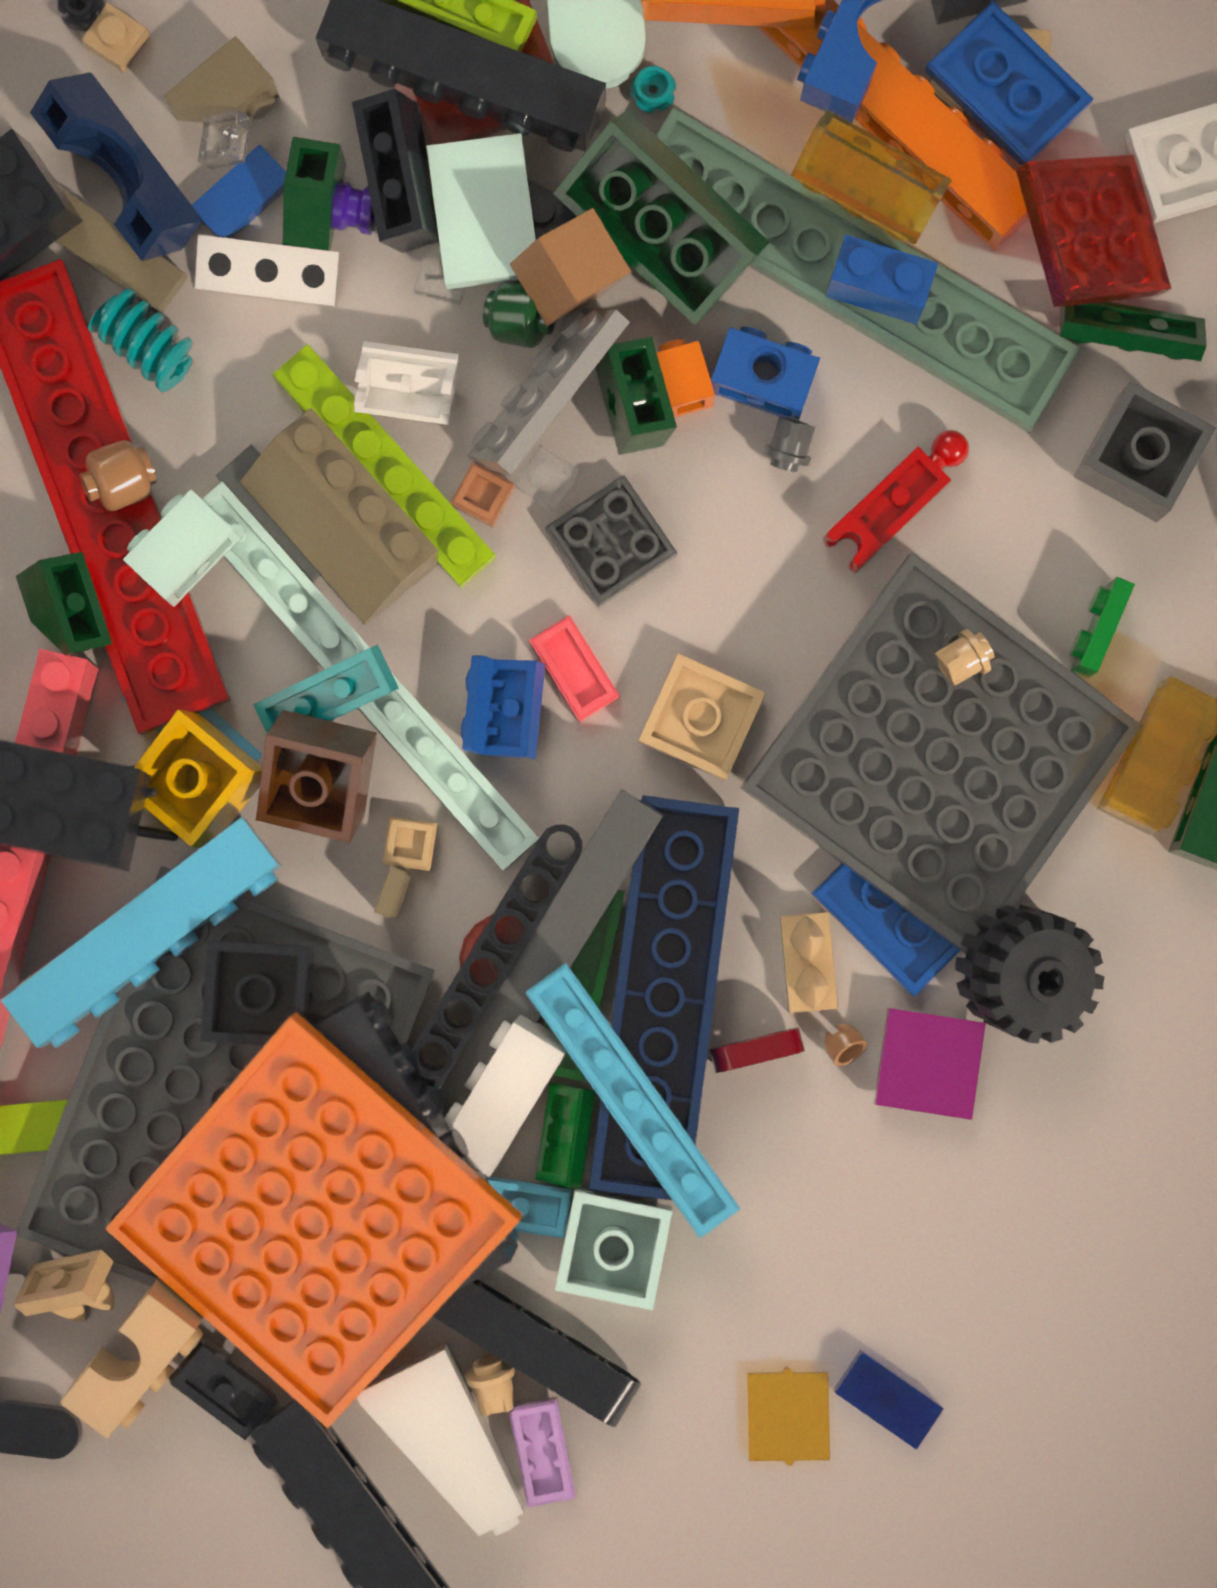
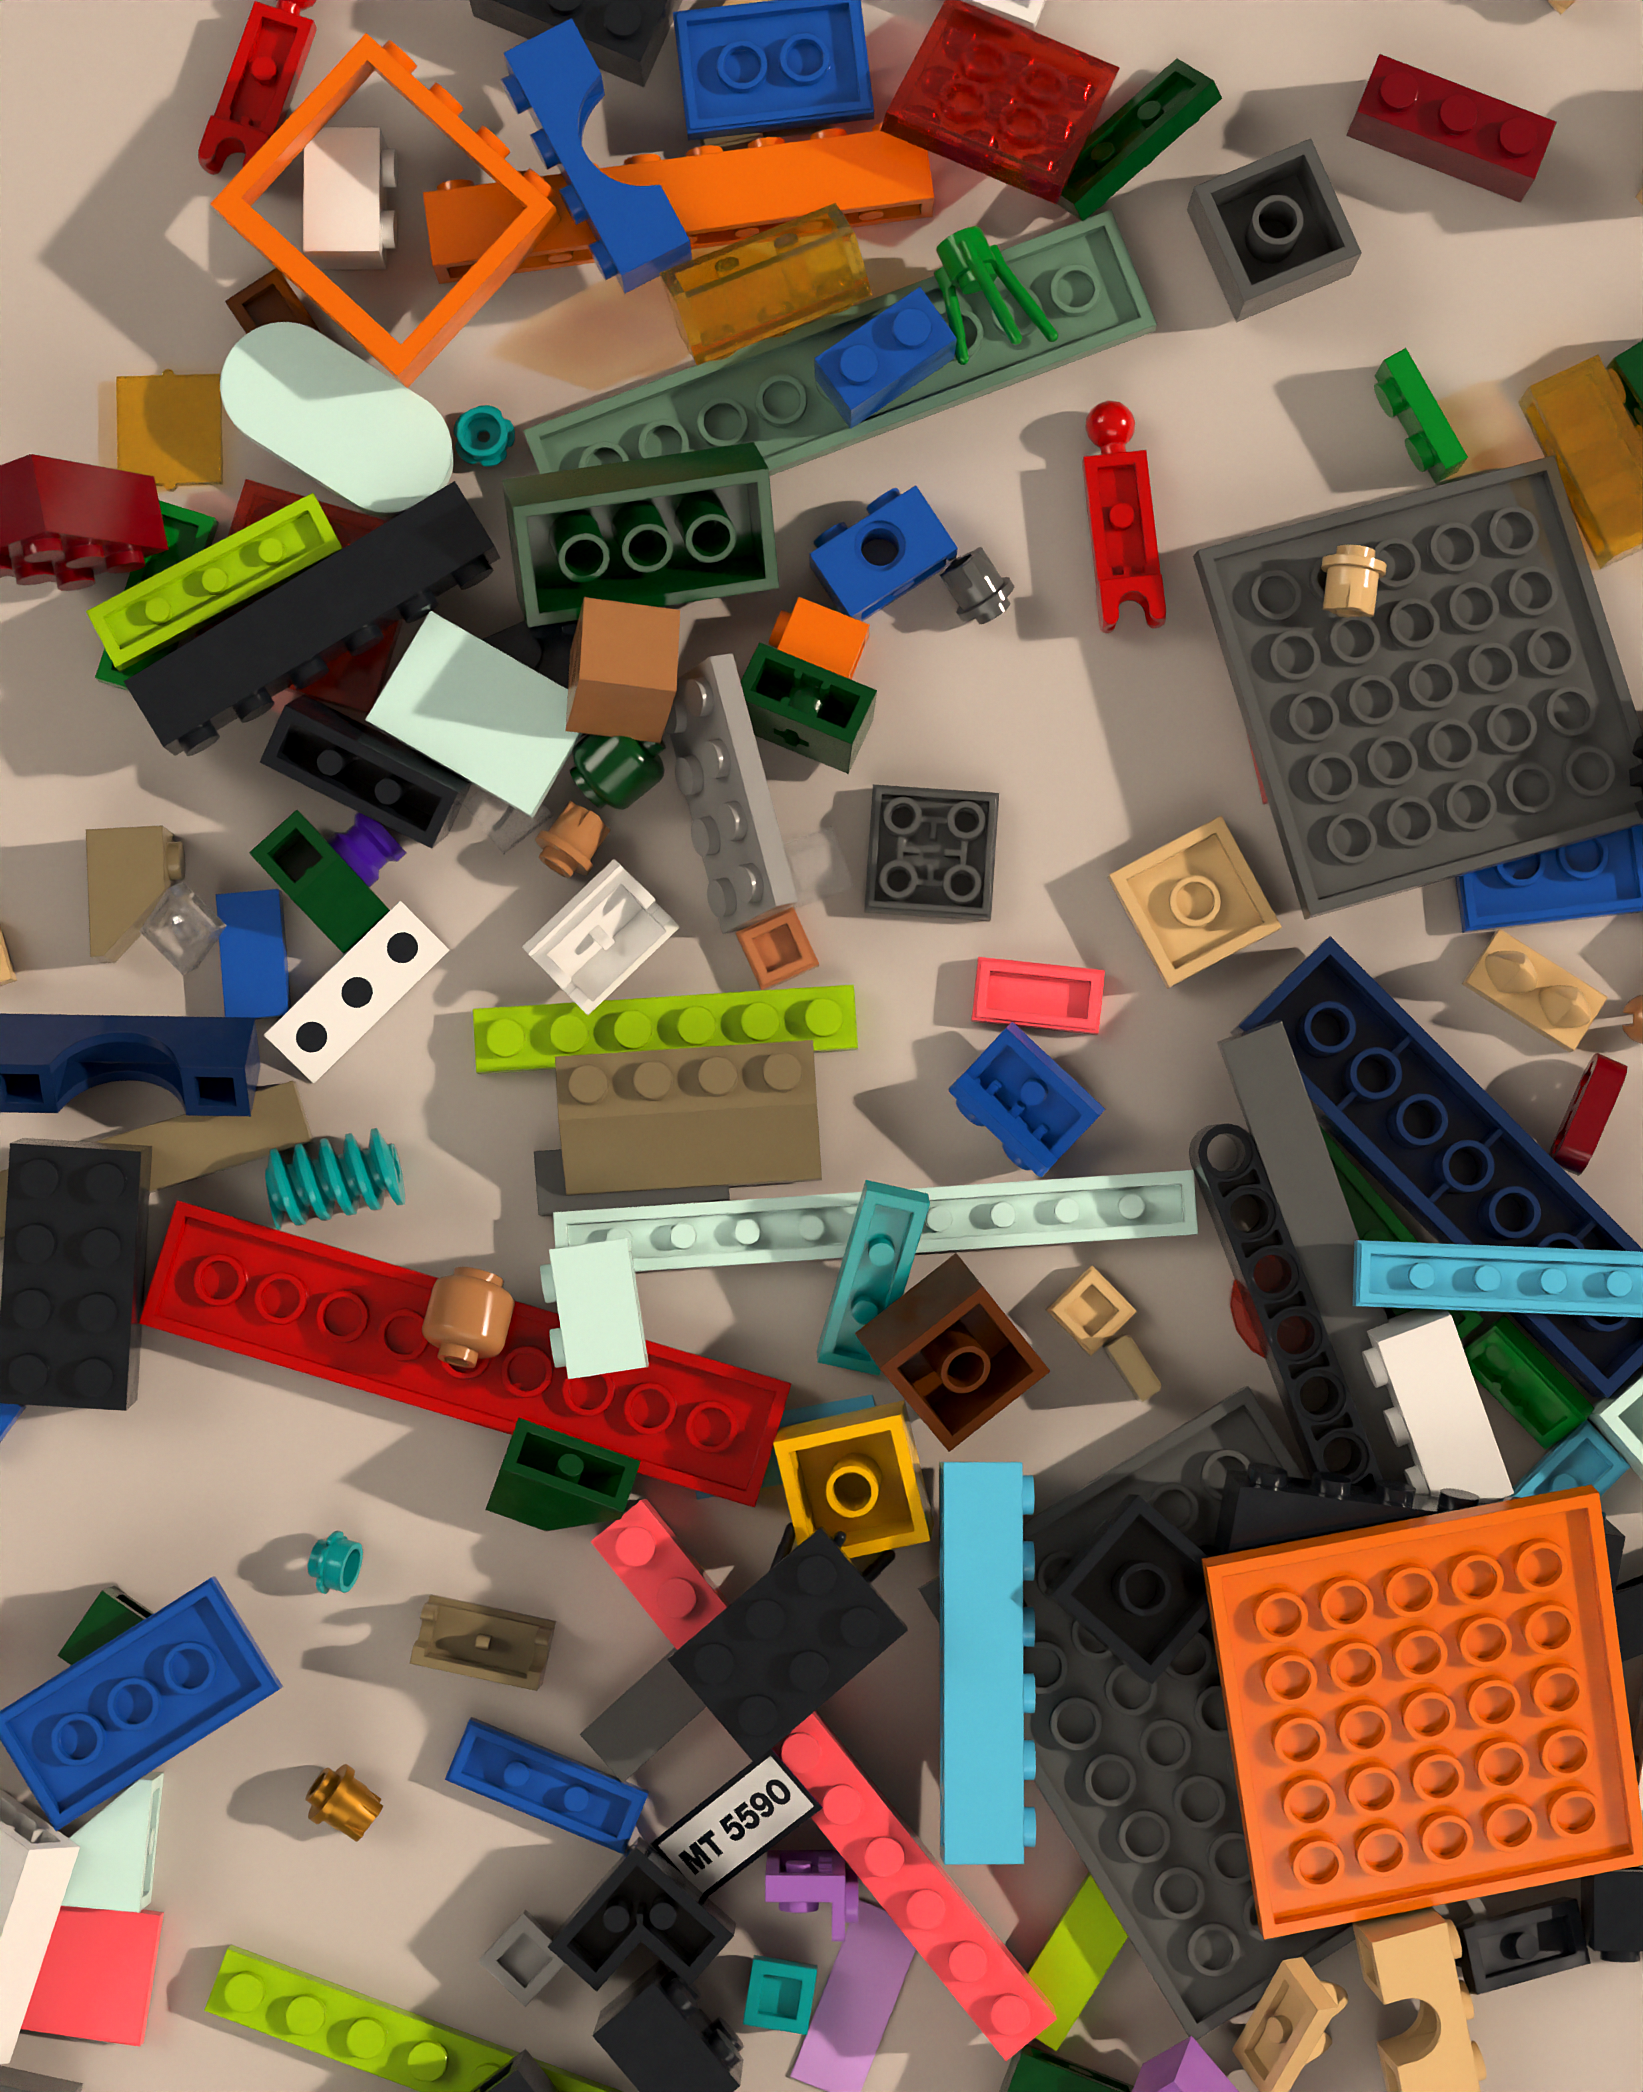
camera: 50 degrees left, 0 degrees up
(452, 324) = (572, 840): none -> medium nougat hose
(977, 290) = (974, 267): none -> green plant

